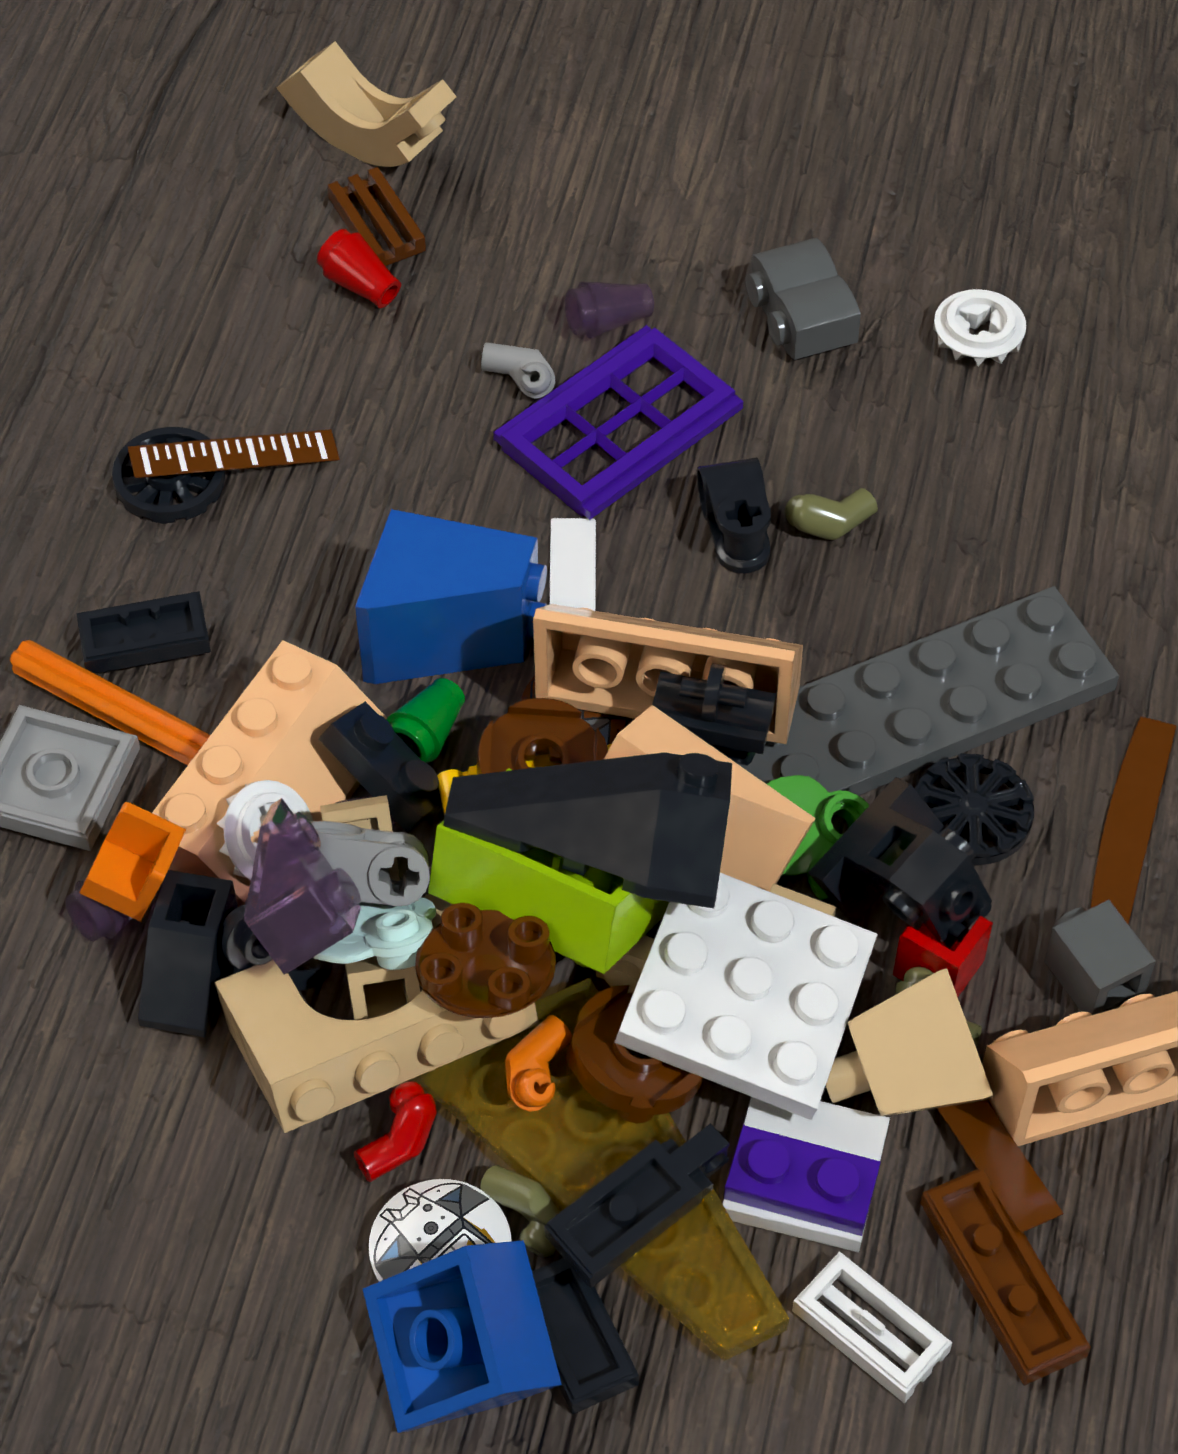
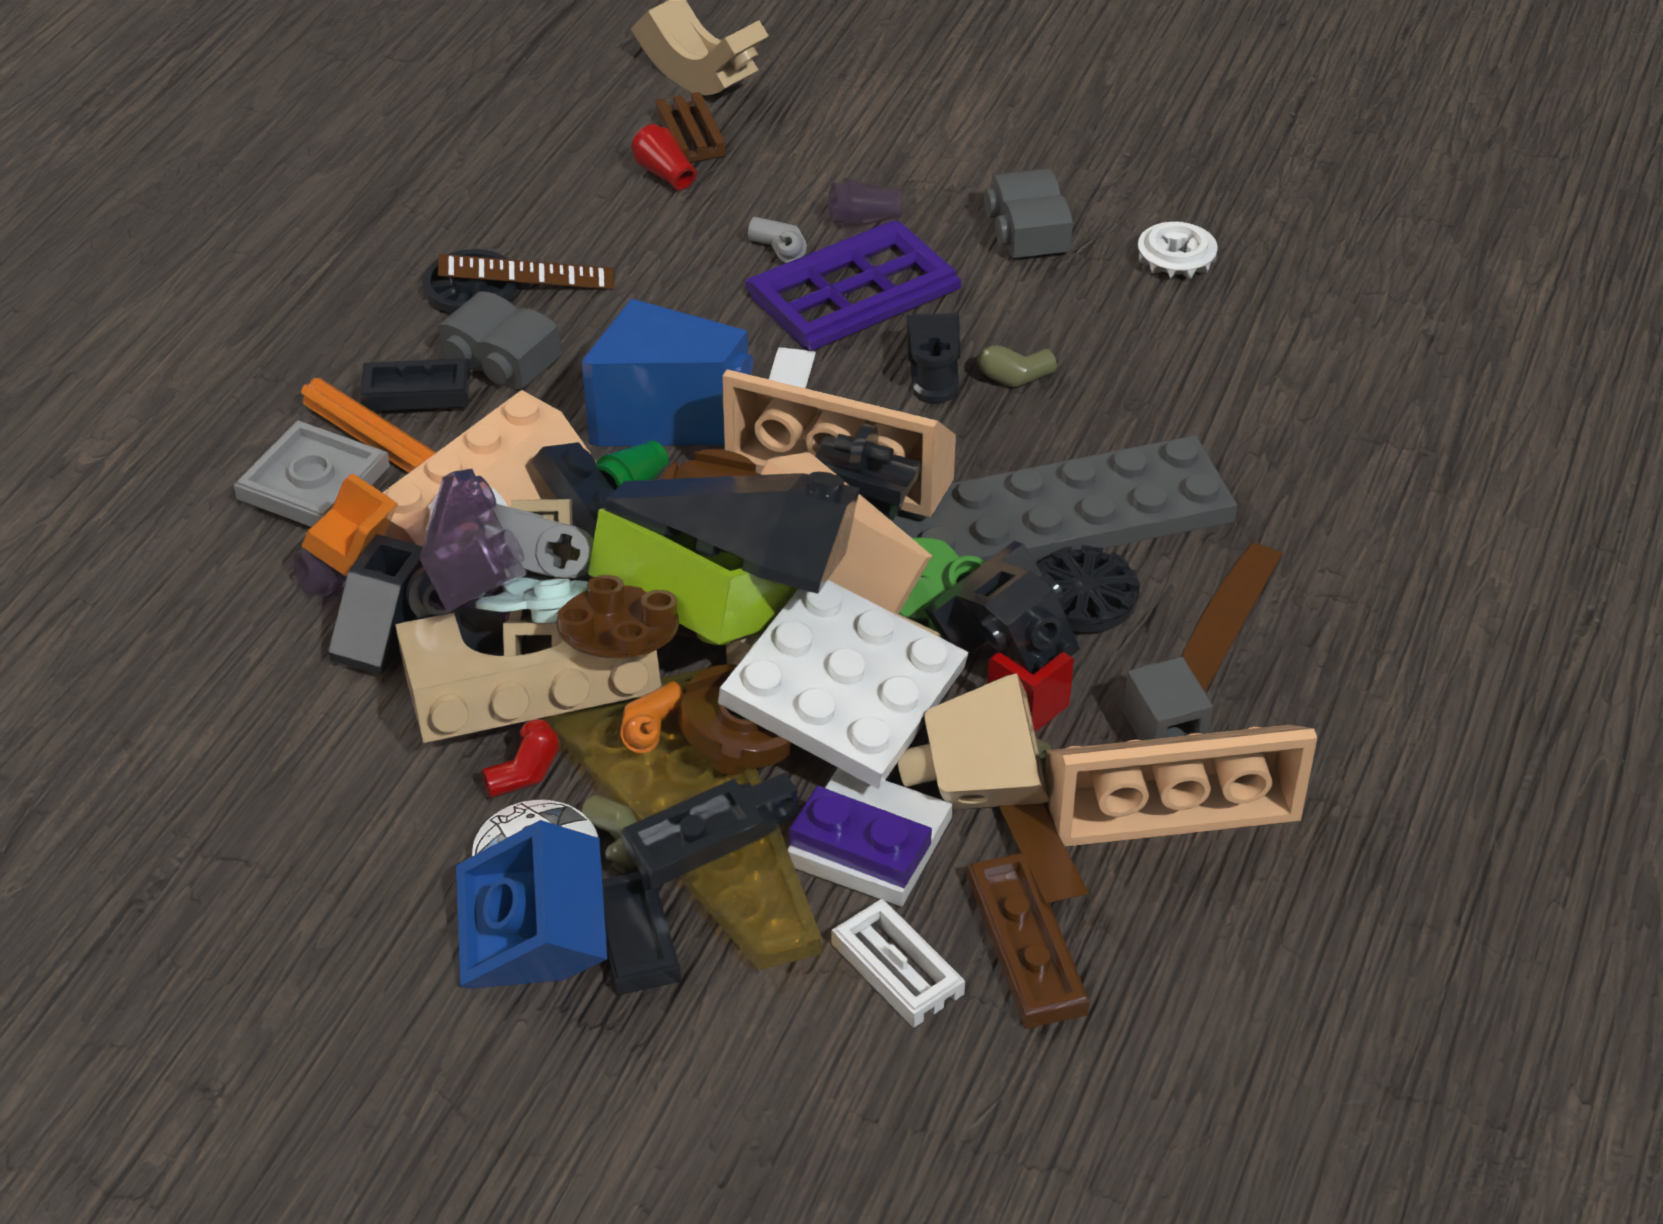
camera: 10 degrees right, 10 degrees down
(229, 558) = (500, 339): none -> dark grey brick

